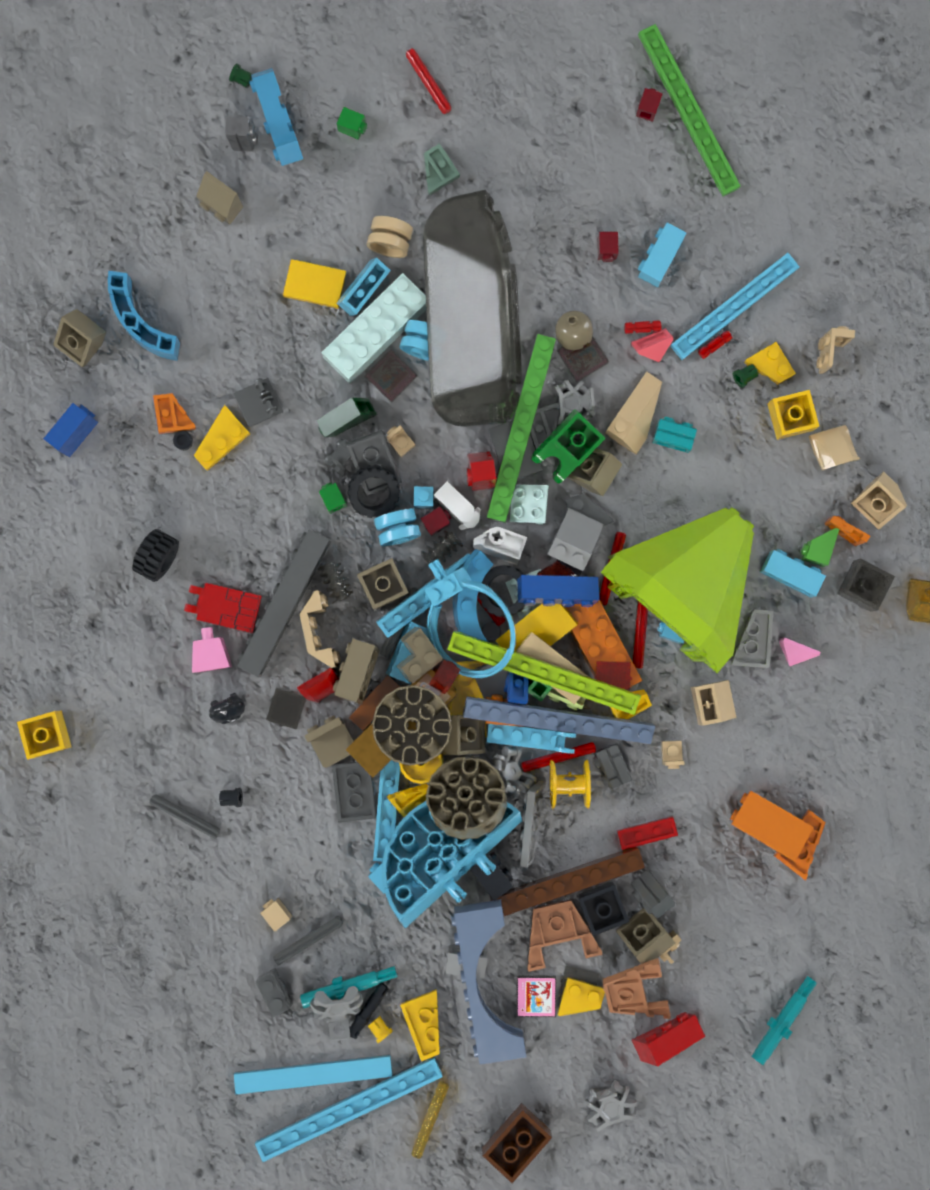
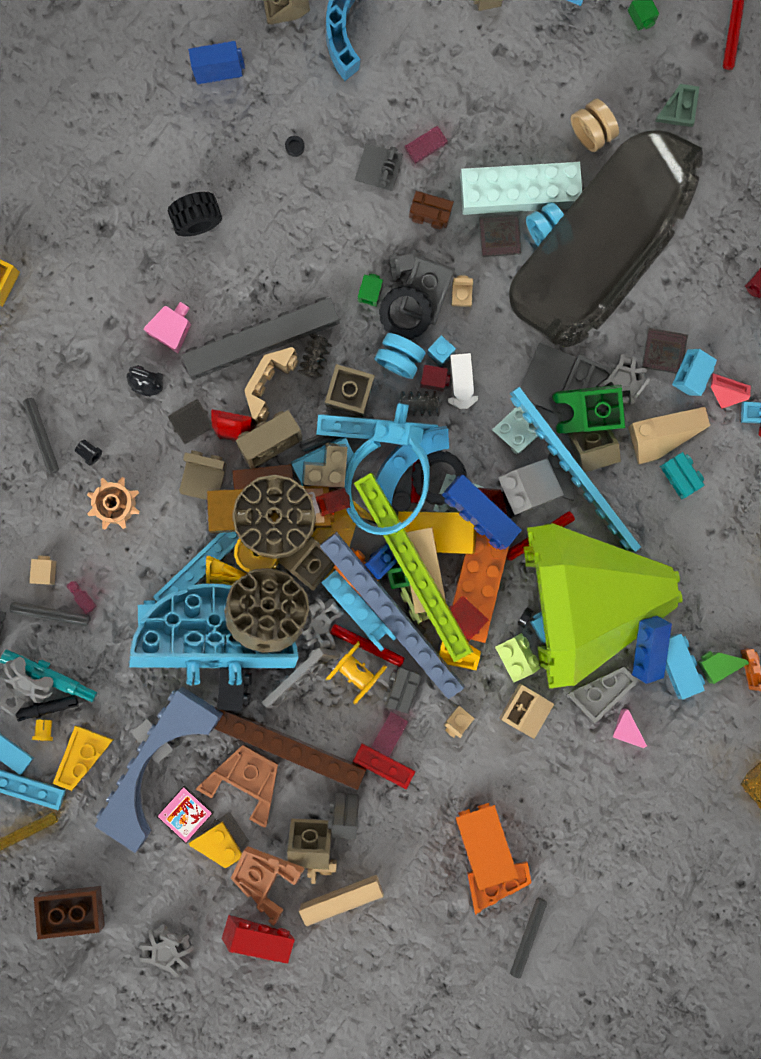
camera: 45 degrees right, 0 degrees up
(171, 415) = (302, 118): orange wing -> none
(221, 439) = (324, 170): yellow wing -> none
(225, 607) = (213, 302): red tile -> none
(278, 356) = (426, 144): none -> clear pink tile
(280, 829) = (105, 511): none -> light nougat brick
(314, 283) = (504, 113): yellow tile -> none
(321, 907) = (81, 597): none -> clear pink bar
(324, 400) = (430, 210): none -> reddish brown brick
(346, 416) = (436, 236): slope -> none
(353, 792) = (184, 531): dark grey tile -> none
(363, 286) = (540, 146): medium azure brick -> none
(481, 471) = (503, 369): red wedge -> none
(508, 547) = (471, 447): white piece -> none
(521, 428) = (569, 361): bright green plate -> none
(574, 330) = (676, 323): dark tan cylinder -> none
(587, 499) = (569, 464): none -> medium azure plate
(603, 908) = (296, 792): black brick -> none
(618, 353) = (694, 372): none -> medium azure brick
(631, 806) = (389, 734): none -> clear pink tile
(640, 636) = (514, 609): red axle -> none
(642, 327) = (733, 369): red axle -> none
(653, 636) = (525, 617): none -> black tile
(673, 669) = (518, 657): none -> yellowish green bracket
(702, 956) = (341, 900): none -> tan brick
(763, 580) = (651, 649): none -> blue brick
(780, 1026) = (353, 1009): teal piece -> none
(857, 862) = (528, 938): none -> dark grey axle
(866, 585) = (730, 726): clear smoke brick -> none

